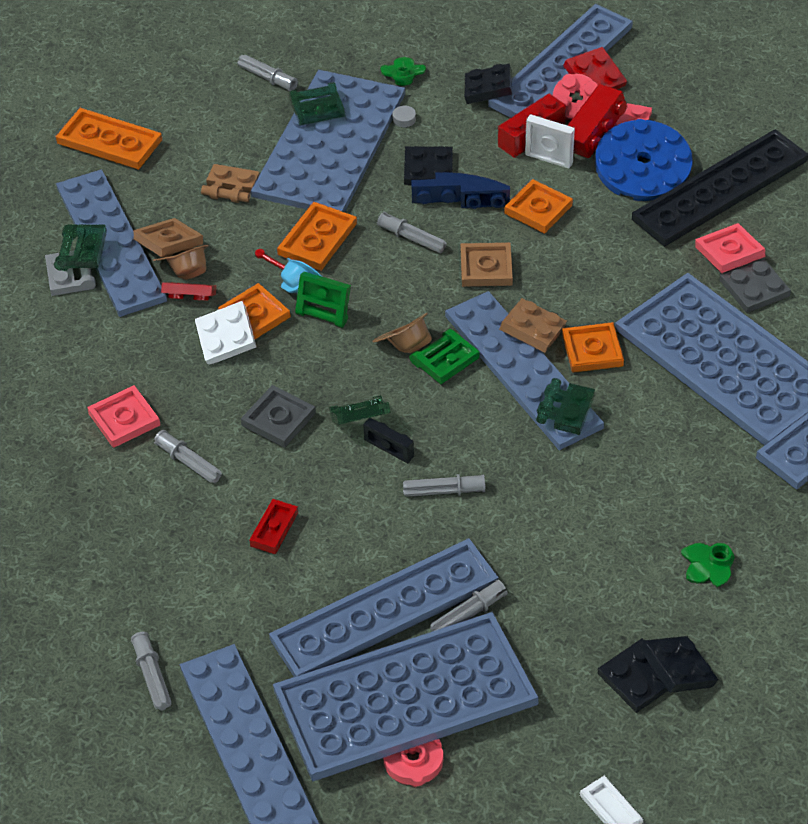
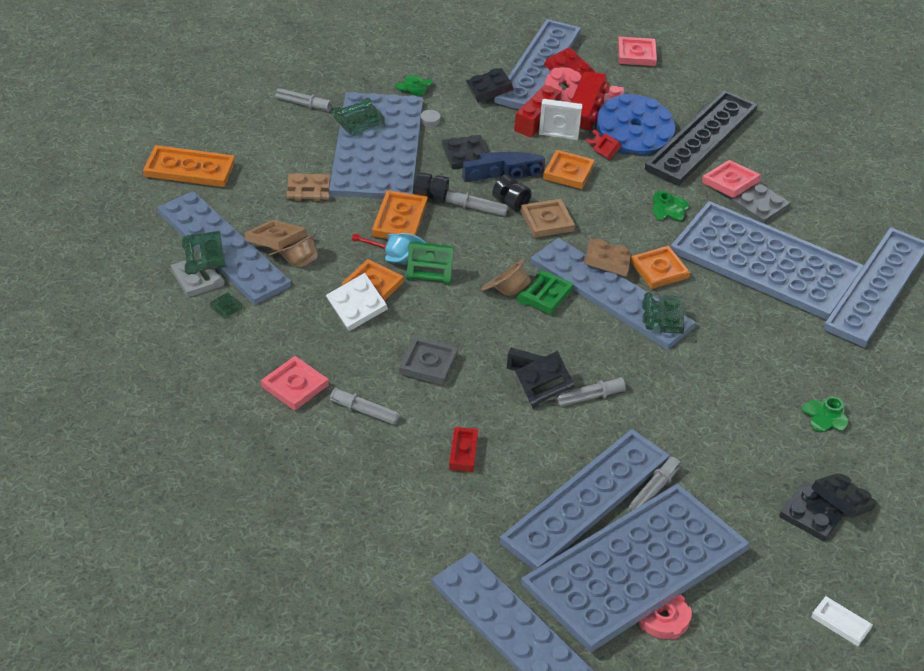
camera: 20 degrees left, 5 degrees down
(87, 312) = (226, 305): none -> clear green plate
(147, 660) = (401, 581): light grey axle -> none
(177, 290) = (318, 273): red plate -> none
(359, 411) = (495, 345): clear green plate -> none
(365, 205) = (431, 187): none -> black wheel
(392, 454) = (542, 372): none -> black plate
(455, 226) = (511, 192): none -> black wheel
(594, 181) = (604, 145): none -> red plate
(639, 274) = (669, 206): none -> green plate
(690, 61) = (637, 51): none -> coral plate

